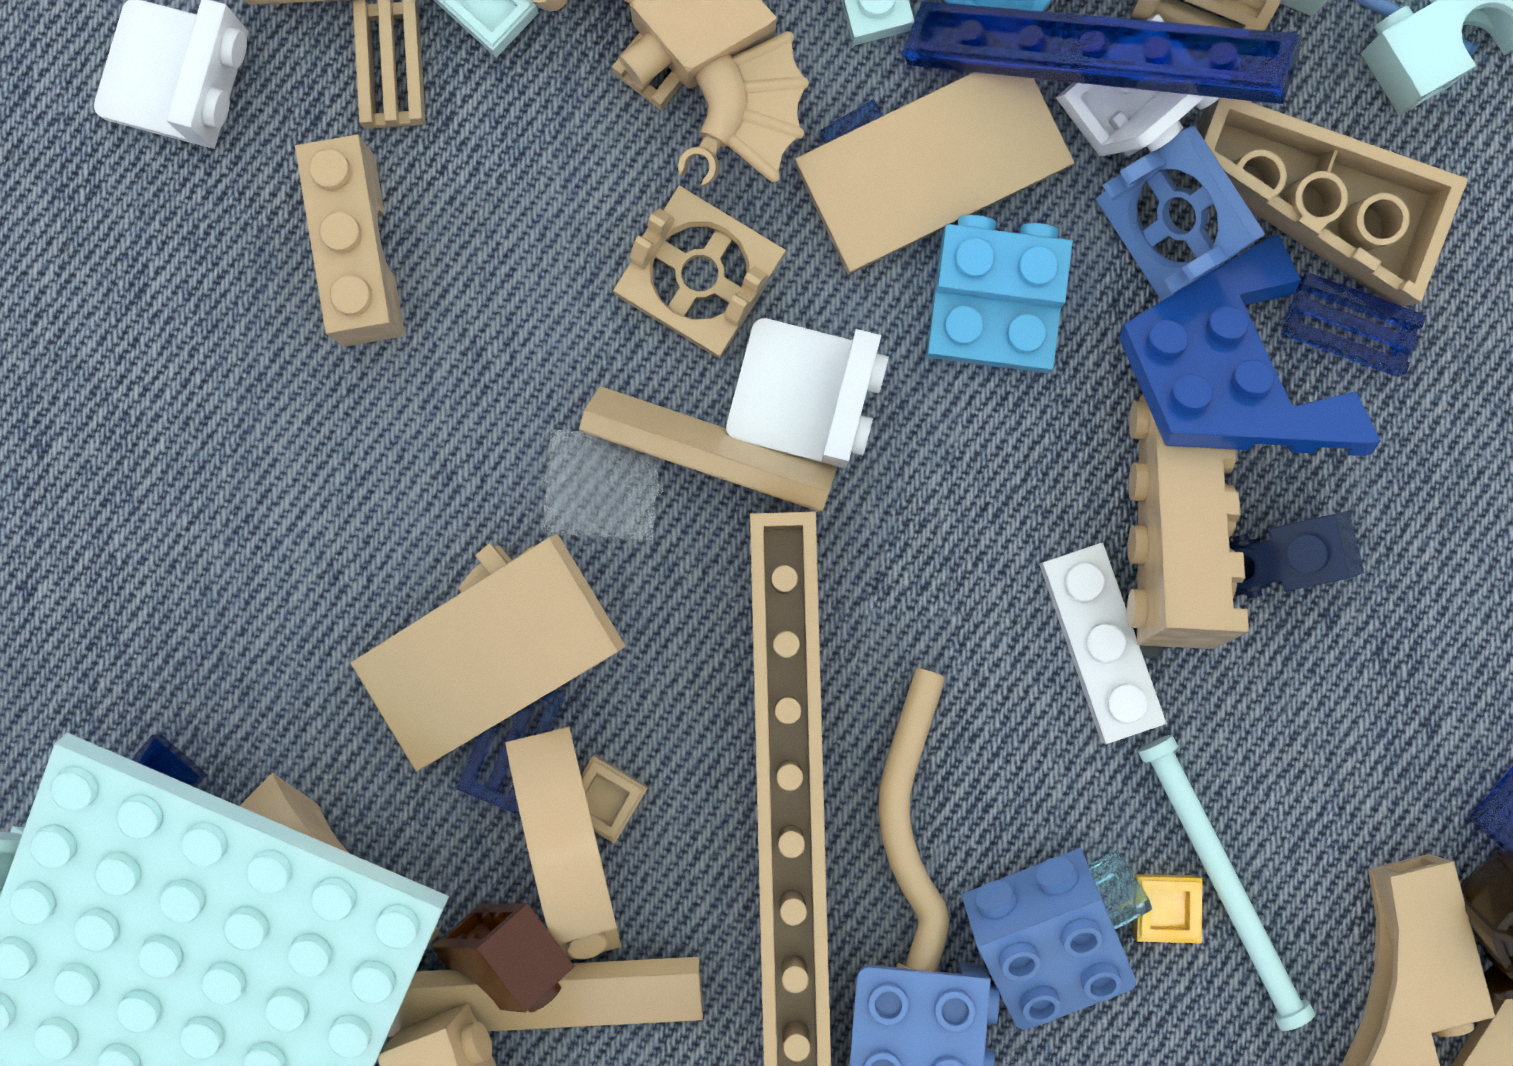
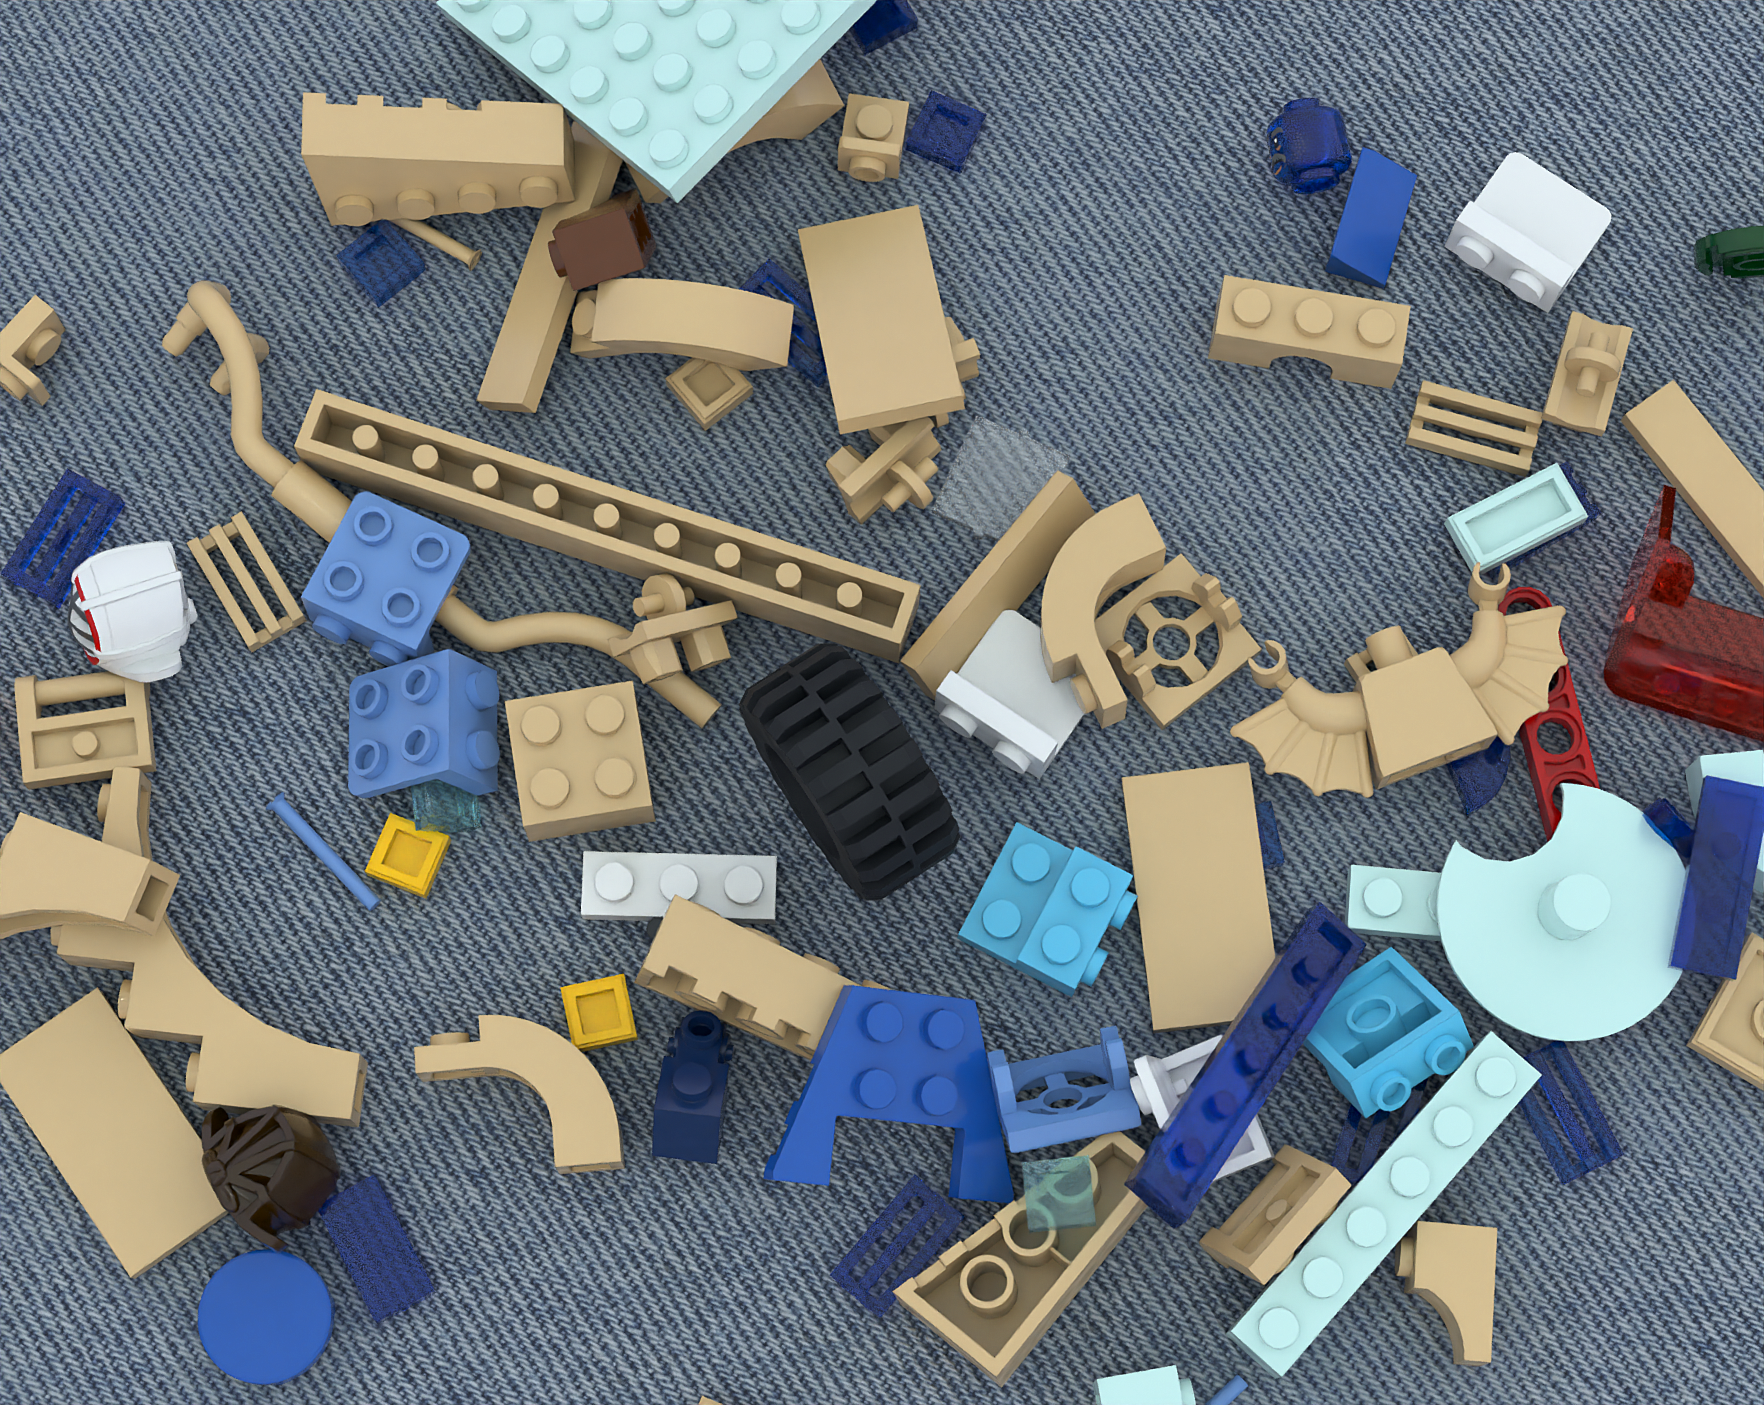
camera: 105 degrees right, 10 degrees down
(157, 304) = (1308, 146): none -> clear blue head
(211, 226) = (1371, 219): none -> blue slope
(261, 665) = (946, 132): none -> clear blue tile
(293, 733) = (872, 137): none -> tan bracket
(651, 608) = (890, 473): none -> tan hips
(694, 368) = (1091, 566): none -> tan arch
(865, 741) = (669, 622): none -> tan hips
(972, 511) = (850, 771): none -> black tyre
(1028, 779) = (579, 761): none -> tan brick
(1193, 989) = (324, 852): none -> medium blue piece
(1246, 672) = (599, 1013): none -> yellow tile
(1285, 178) = (1059, 1194): none -> clear light blue tile
(1291, 1010) = (410, 917): light aqua bar -> none
(1323, 696) = (579, 1104): none -> tan arch

